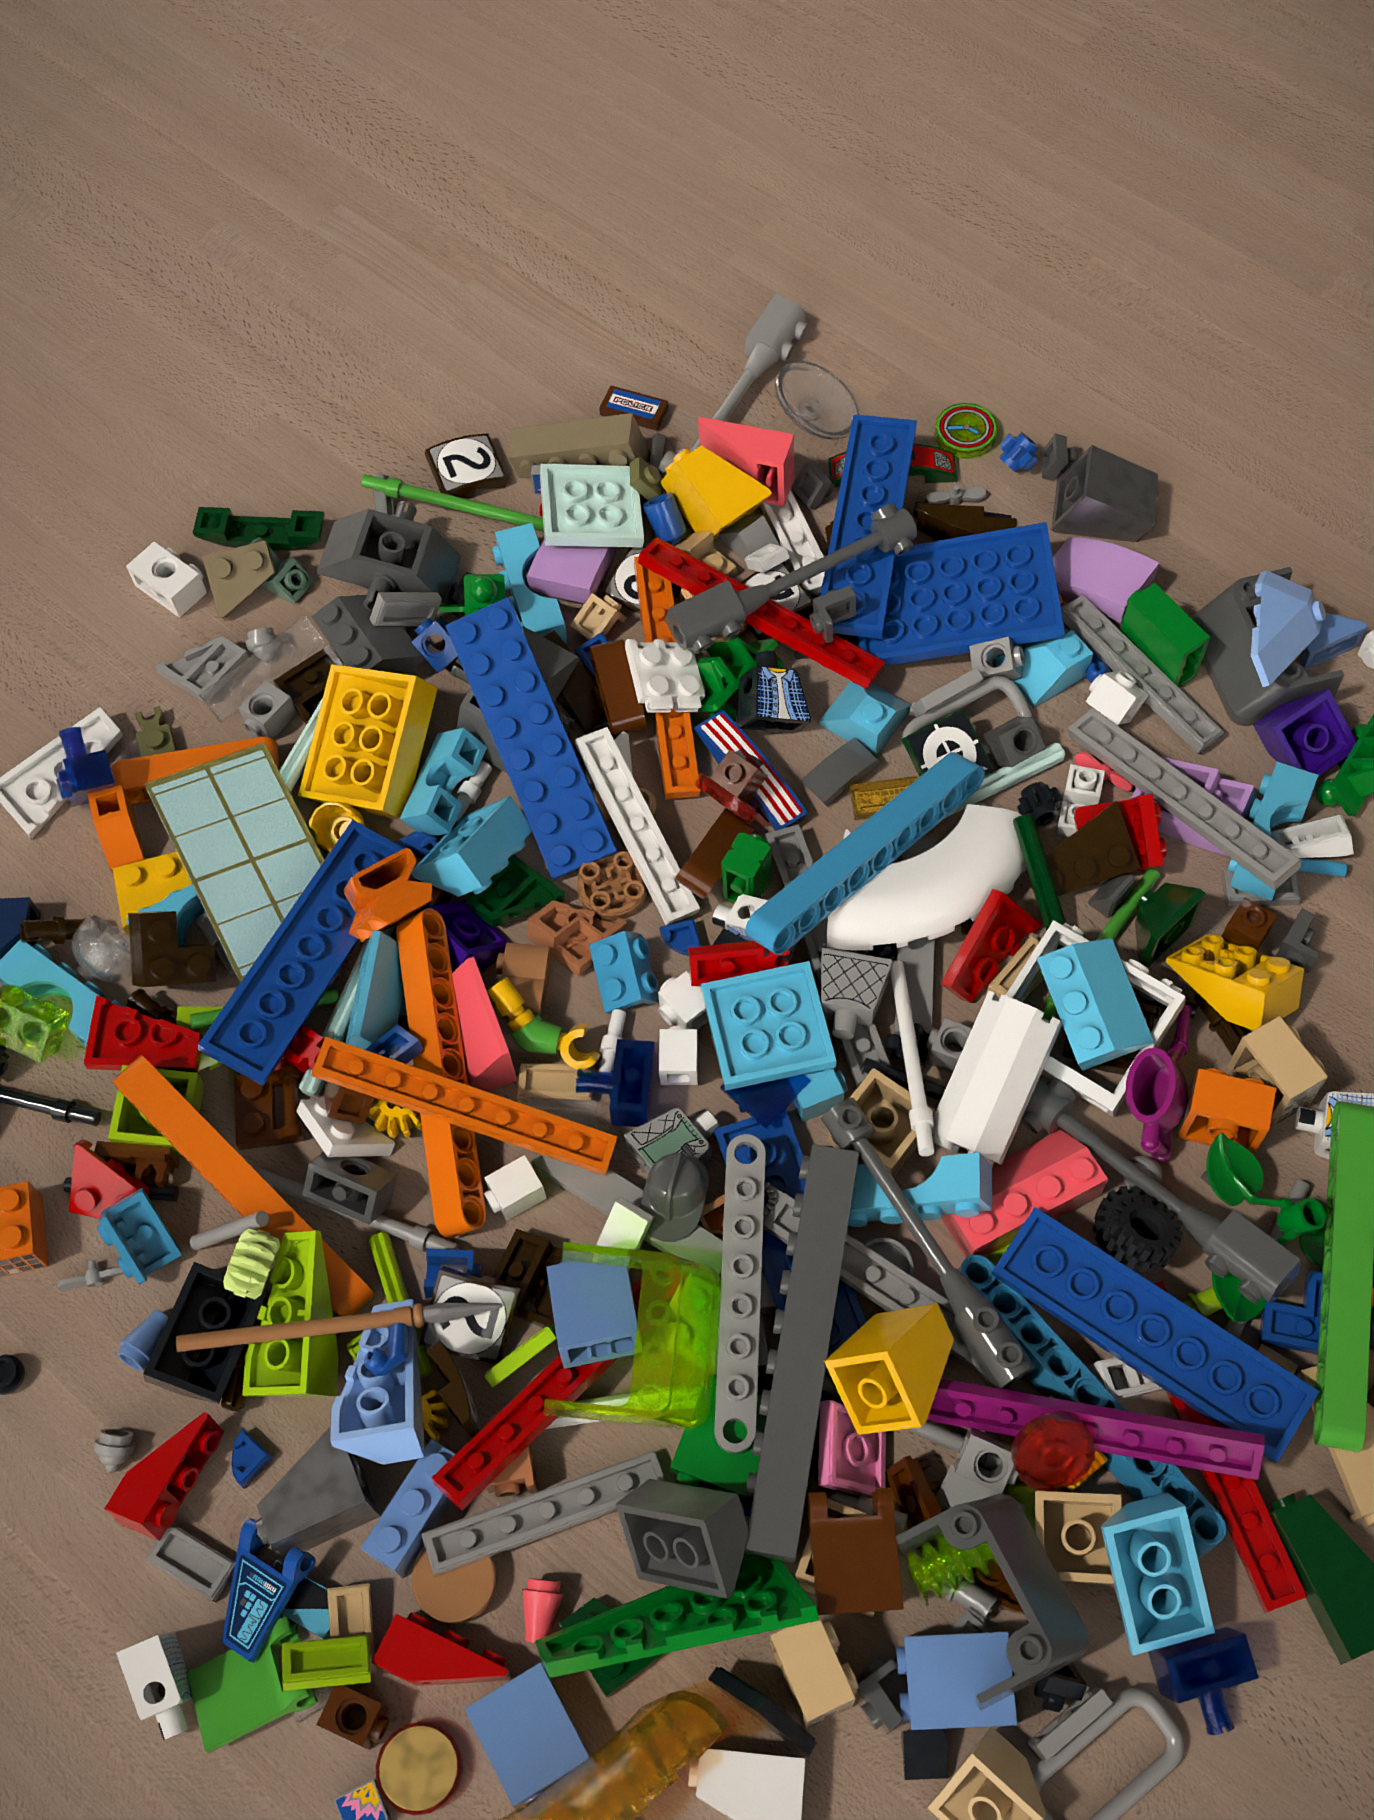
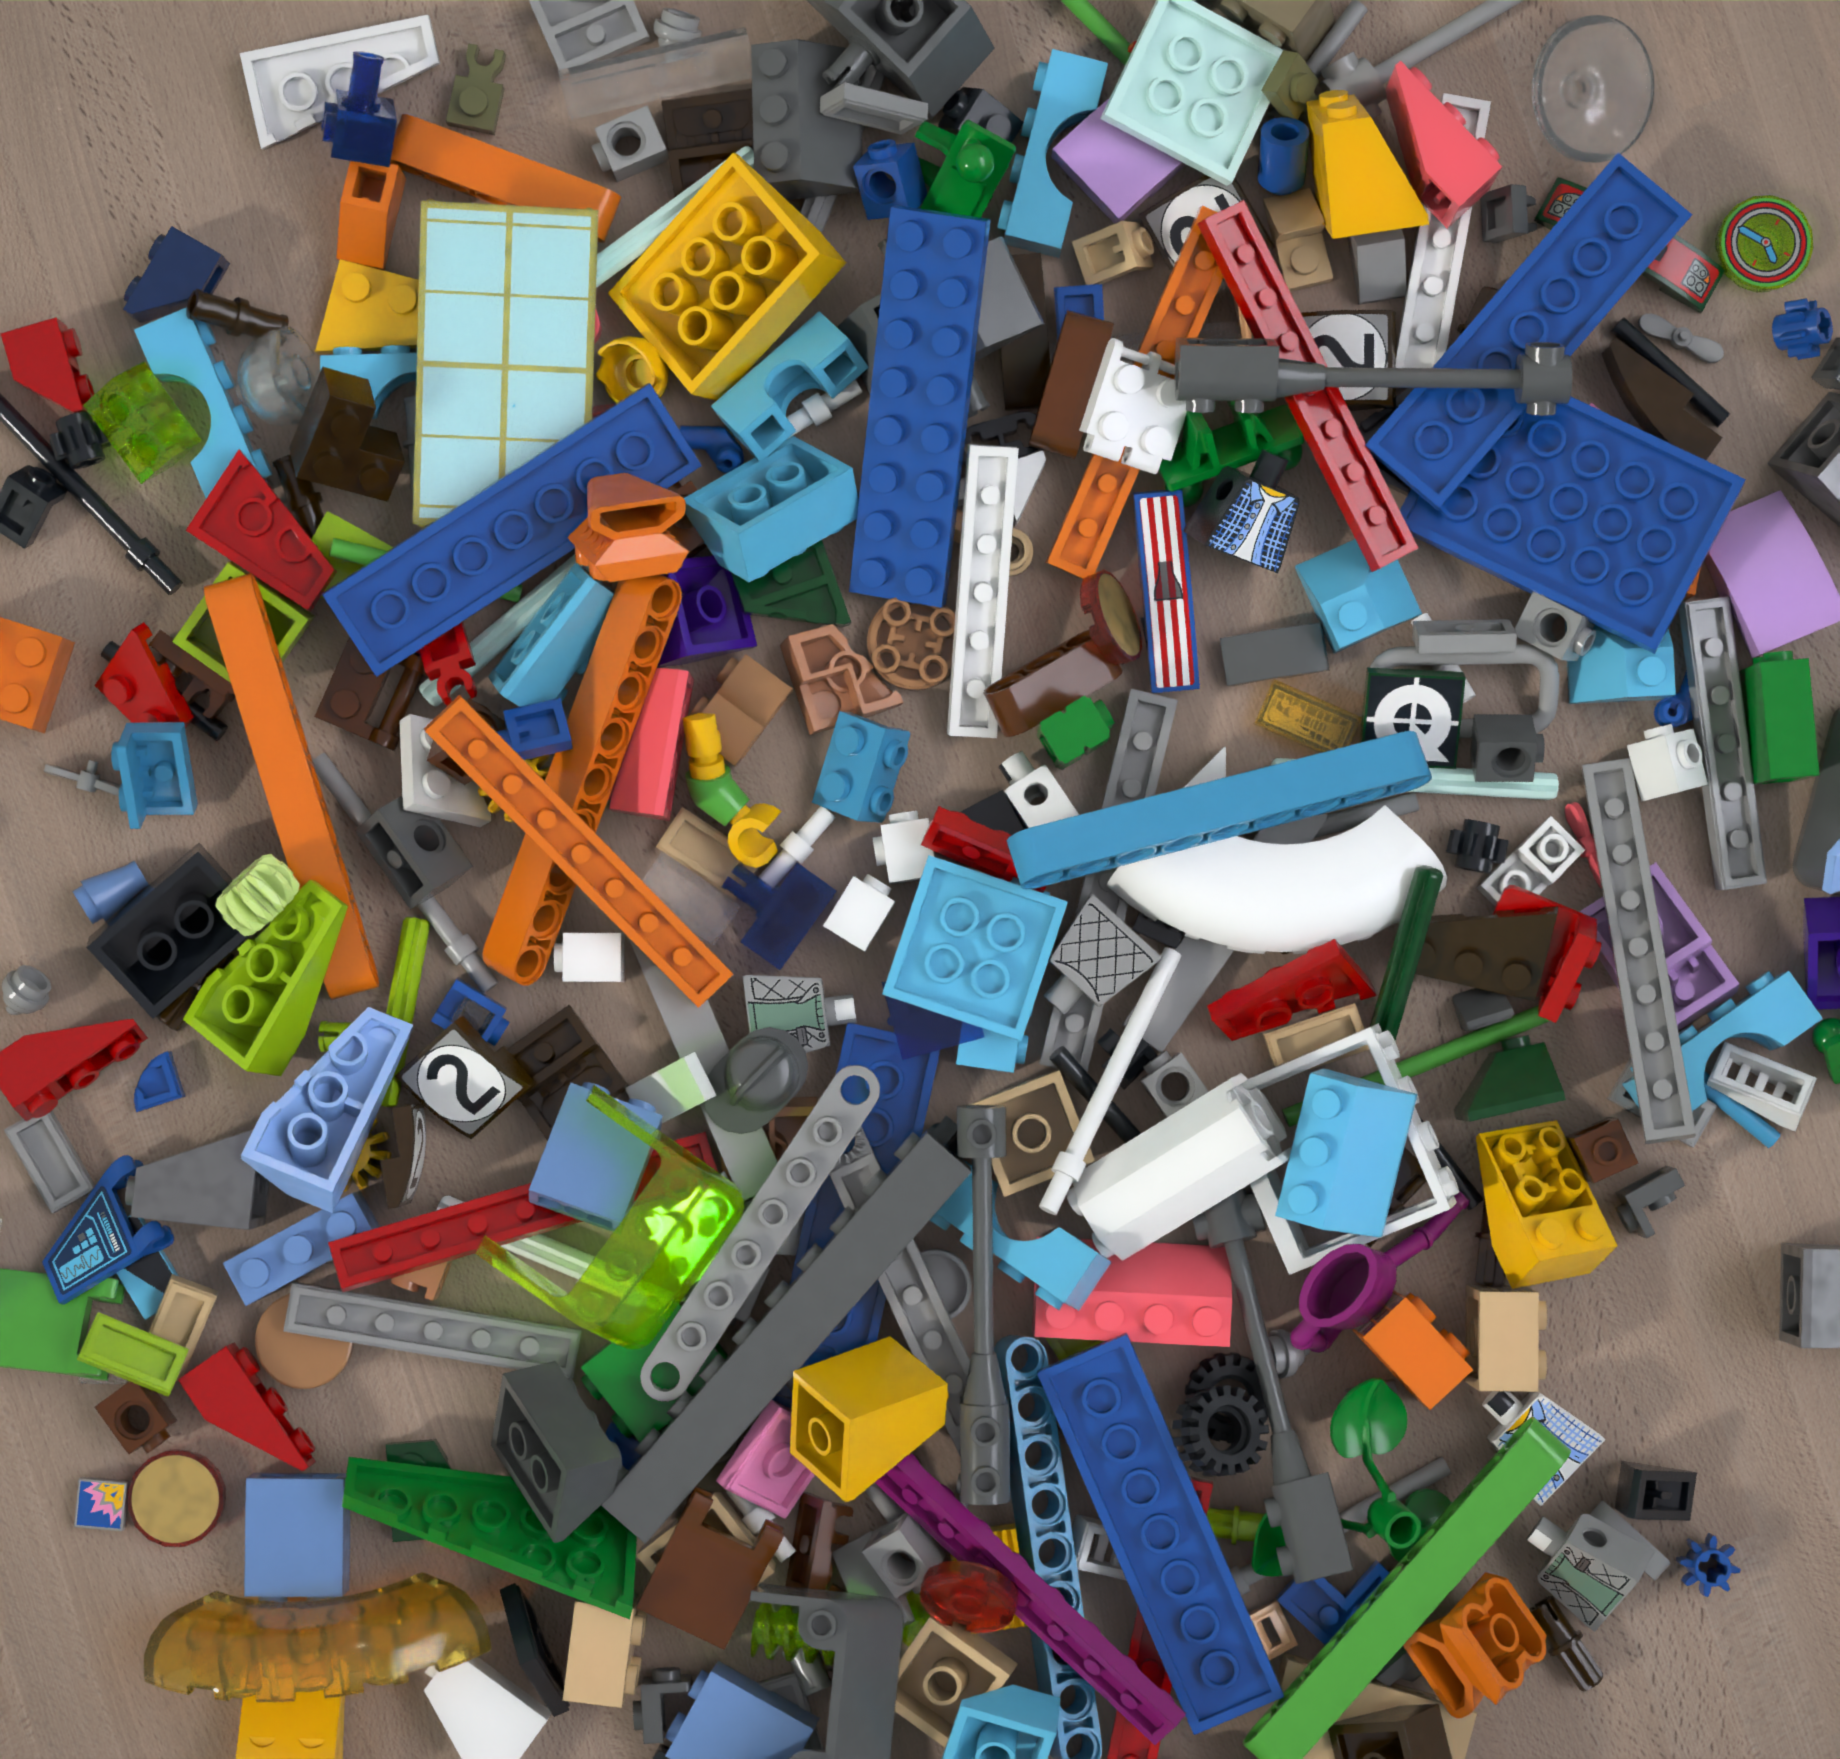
camera: 25 degrees right, 25 degrees up
(229, 1230) = (254, 830): light grey bar -> none
(385, 1361) = (353, 1092): blue arm -> none
(417, 1315) = (383, 1049): medium nougat piece -> none
(521, 1355) = (495, 1153): lime tile -> none
(541, 1607) = (376, 1419): coral cone -> none
(681, 936) = (957, 759): blue tile -> none
(738, 776) = (1137, 608): reddish brown brick -> none
(766, 558) = (1372, 300): white tile -> none
(831, 609) = (1397, 445): dark grey bracket -> none

